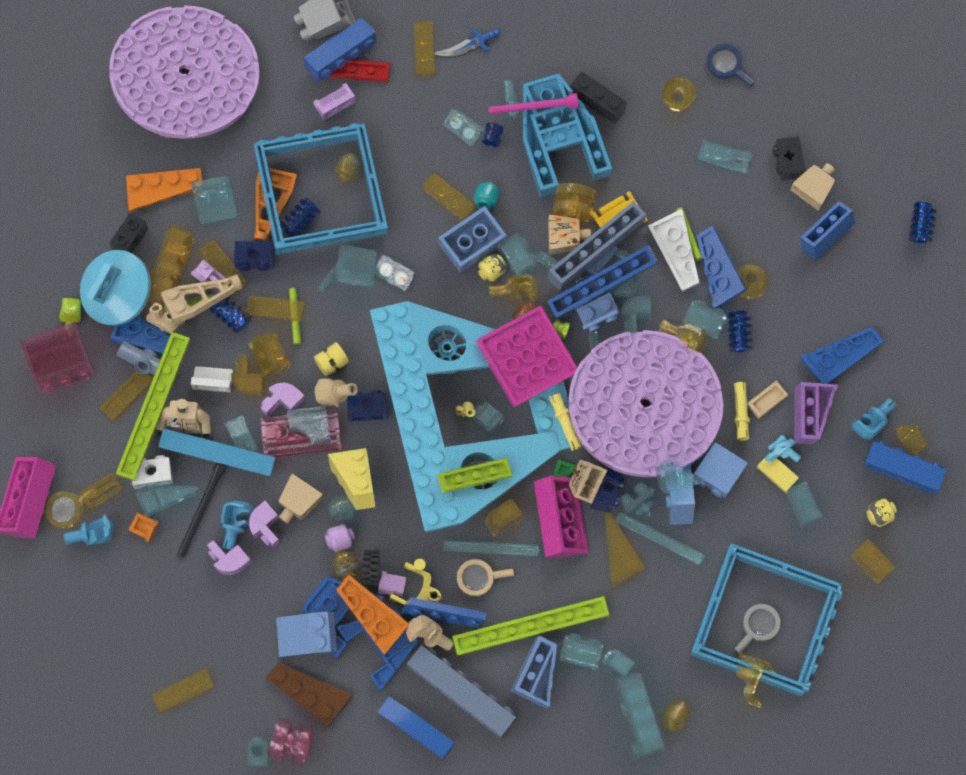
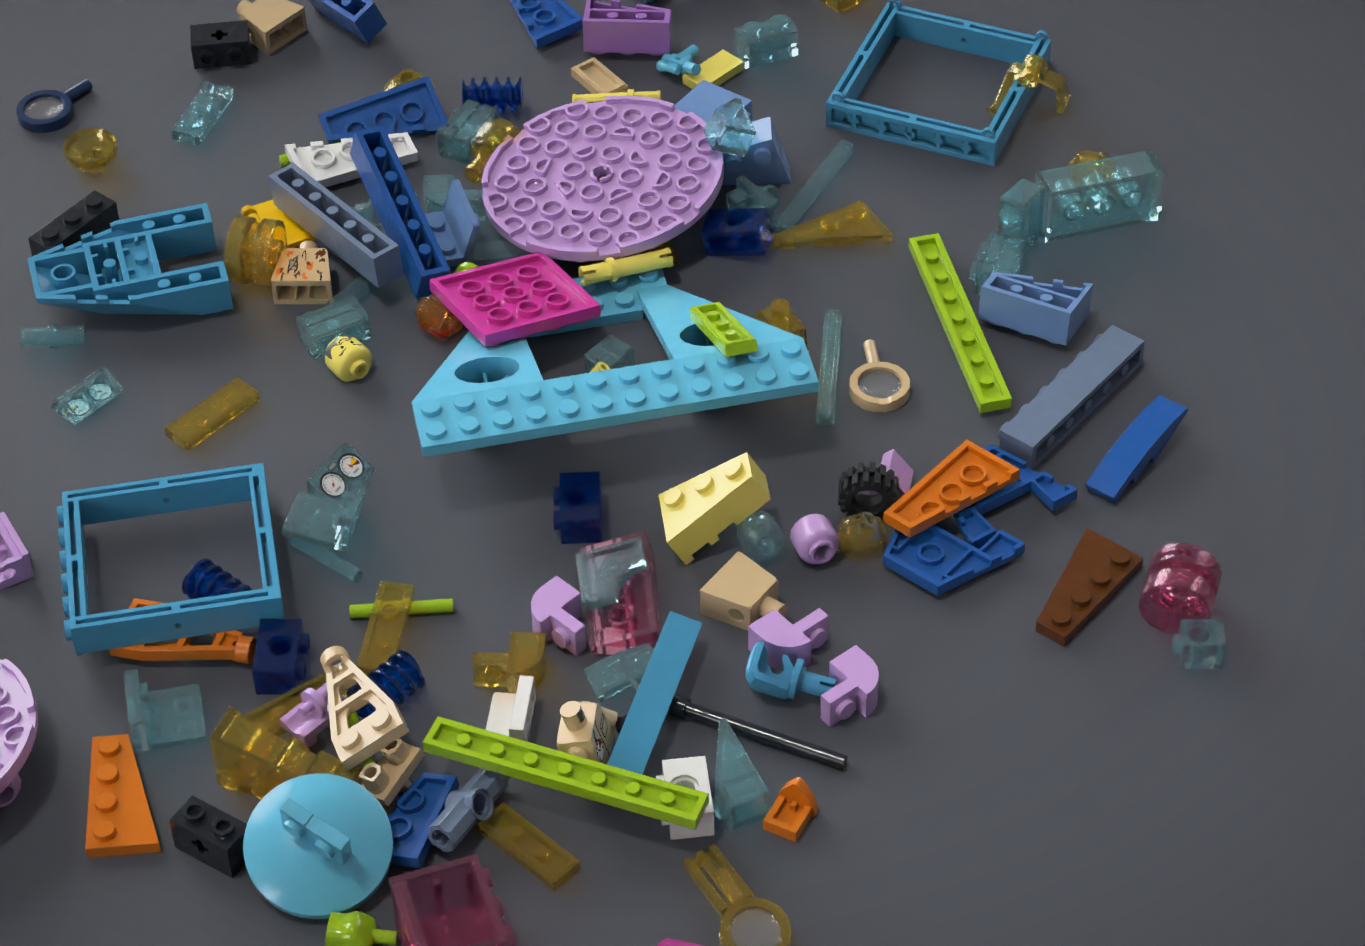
camera: 85 degrees left, 30 degrees down
(95, 533) = (801, 878): dark azure piece -> none
(182, 690) = (1095, 754): clear yellow tile -> none
(269, 354) = (474, 627): clear yellow brick -> none
(306, 634) = (988, 572): medium blue slope -> none
(333, 392) = (555, 533): tan piece -> none
(334, 353) = (491, 549): light yellow wheel -> none
(347, 167) = (135, 531): clear yellow head -> none
(426, 590) = (908, 440): light yellow piece -> none
(429, 630) = (978, 420): tan piece -> none
(442, 613) = (943, 409): blue wing -> none
(472, 239) = (298, 372): medium blue brick -> none
(486, 195) = (221, 361): teal head -> none
(492, 134) = (113, 355): clear blue wheel -> none
(514, 286) = (391, 324): clear yellow piece -> none
(560, 518) = (793, 282): dark pink slope -> none
(564, 469) = (700, 286): green tile -> none
(569, 101) = (83, 237): dark pink piece -> none
(587, 479) = (723, 237): tan torso -> none
(759, 624) = (947, 94): piece -> none

